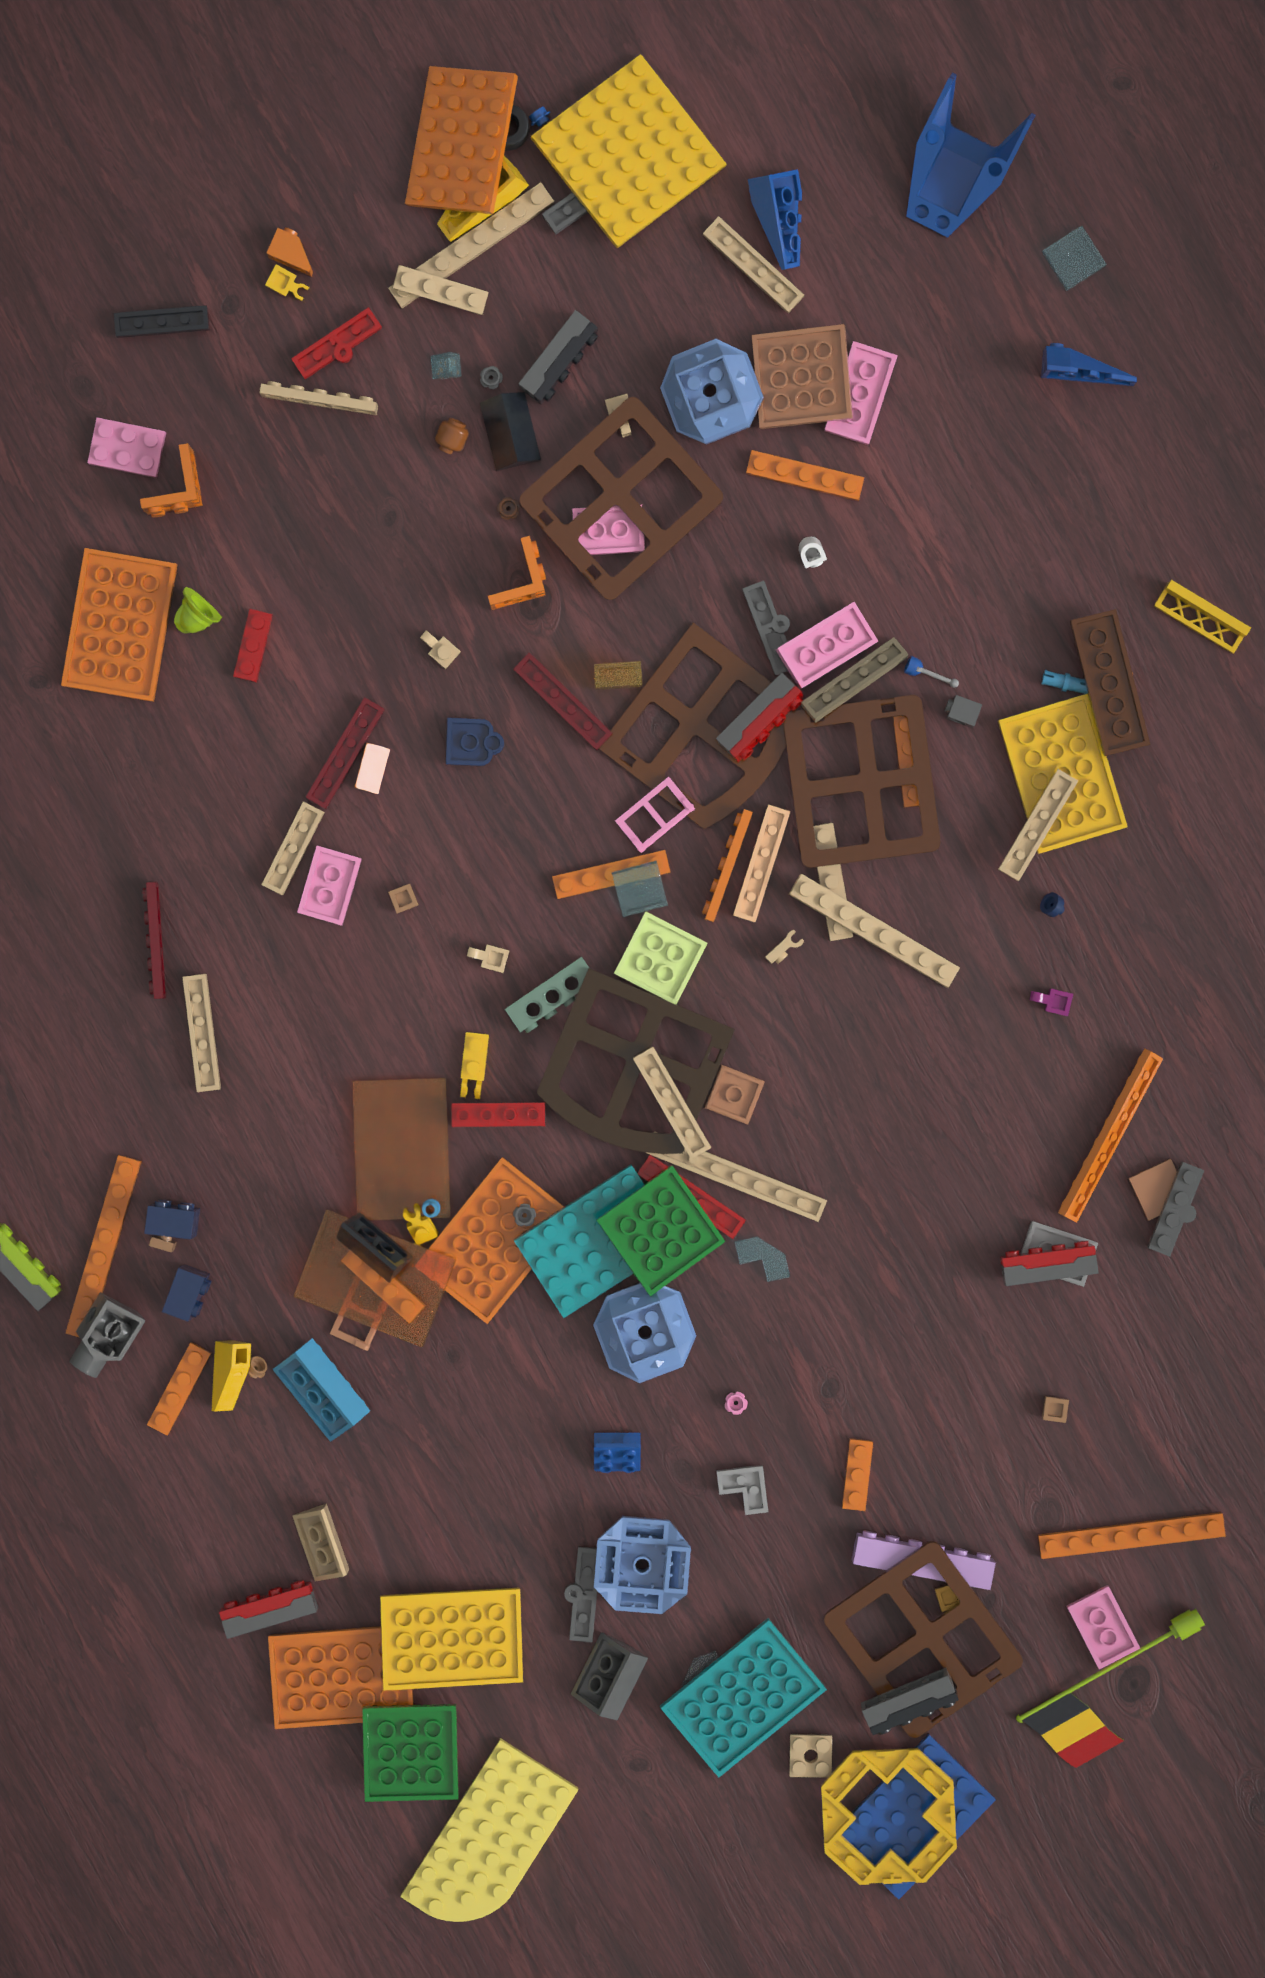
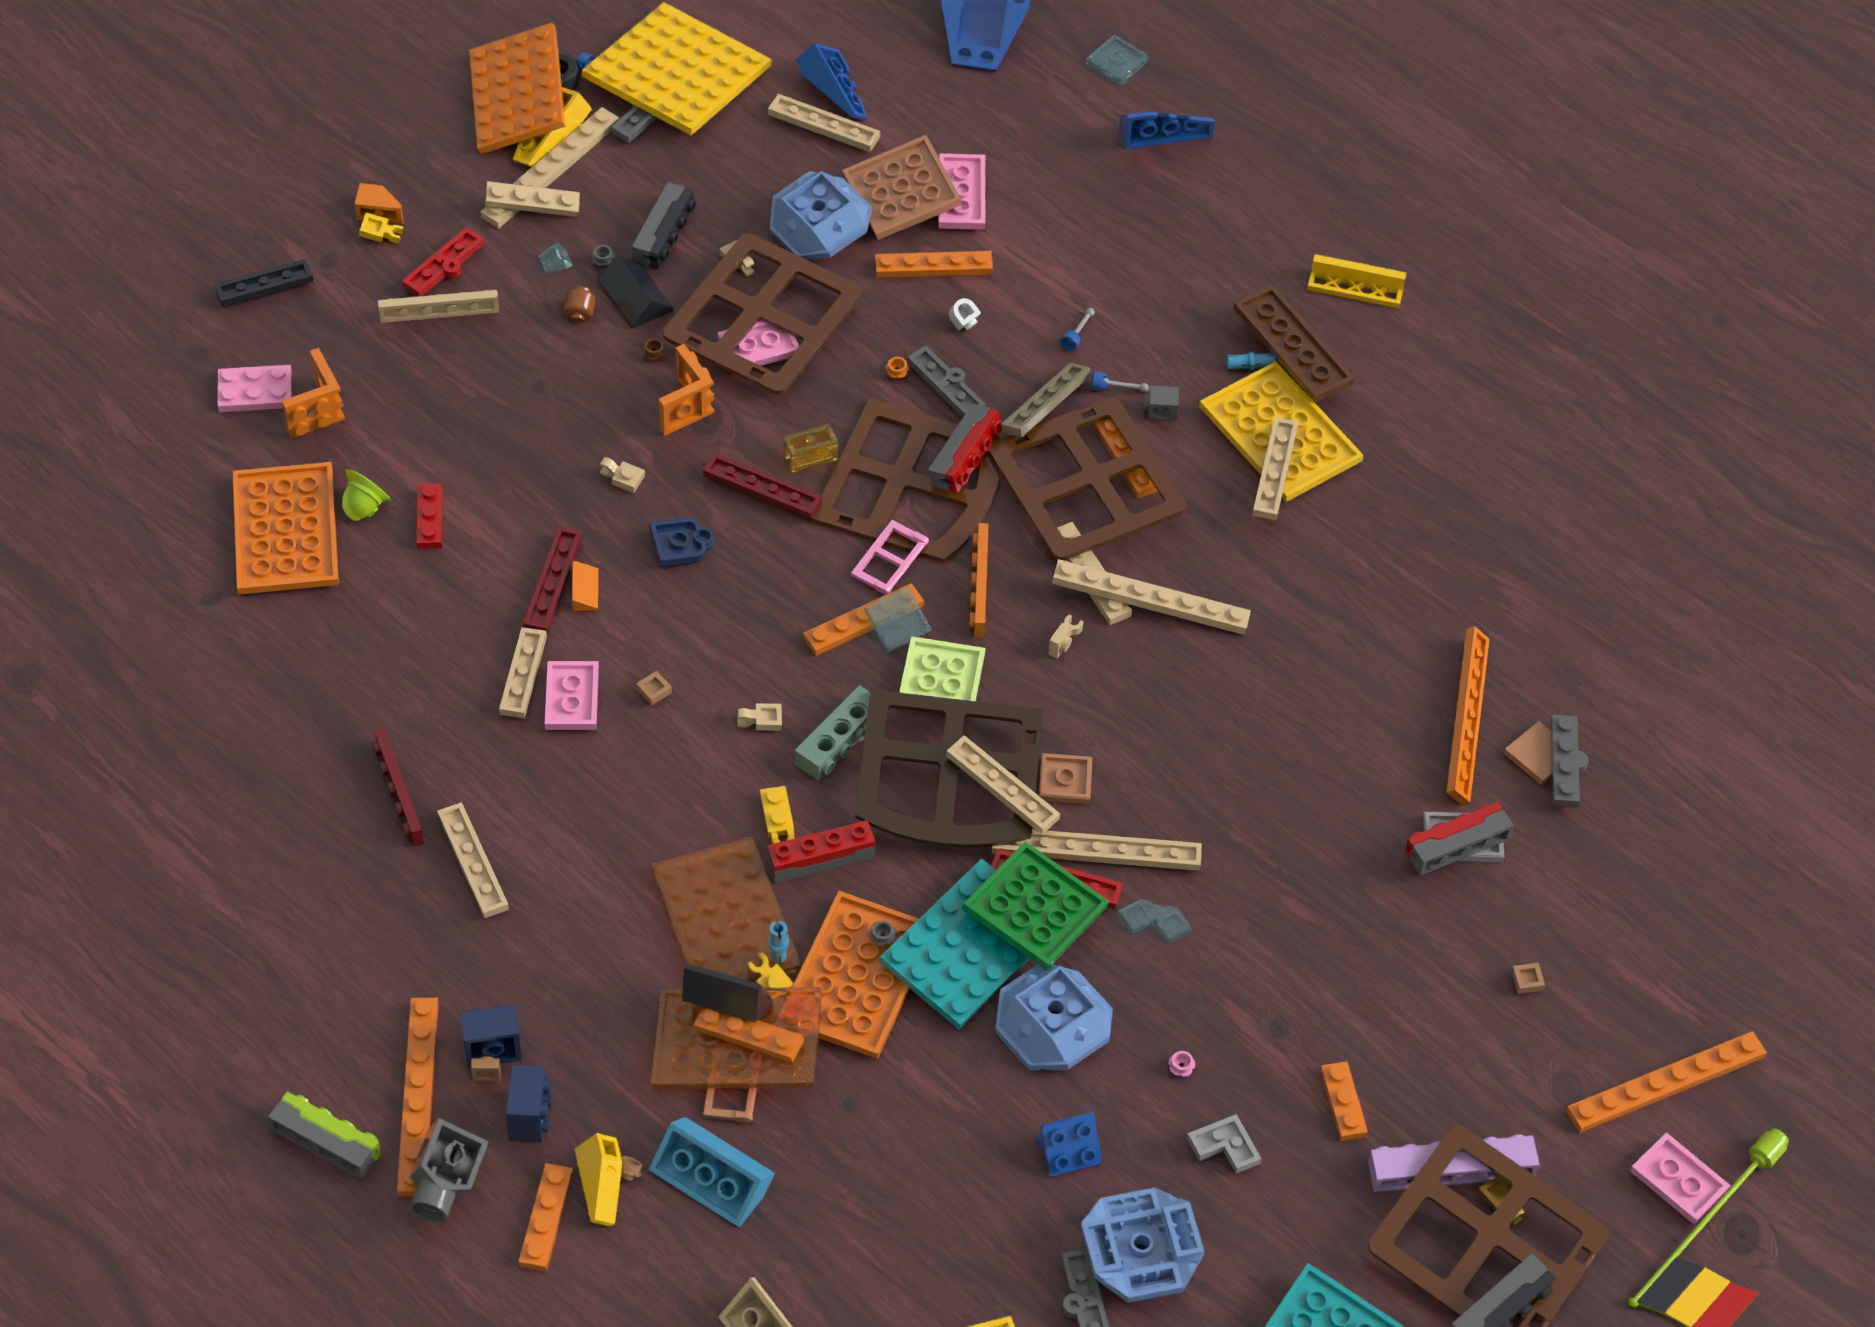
camera: 15 degrees left, 35 degrees down
(730, 589) = (897, 367): none -> orange plate
(761, 863) = (1014, 572): light nougat plate -> none
(826, 645) = (1008, 378): bright pink plate -> none
(905, 607) = (1071, 340): none -> blue hinge
(1052, 904) = (1320, 536): dark blue tile -> none
(1056, 1001) = (1358, 614): magenta plate -> none

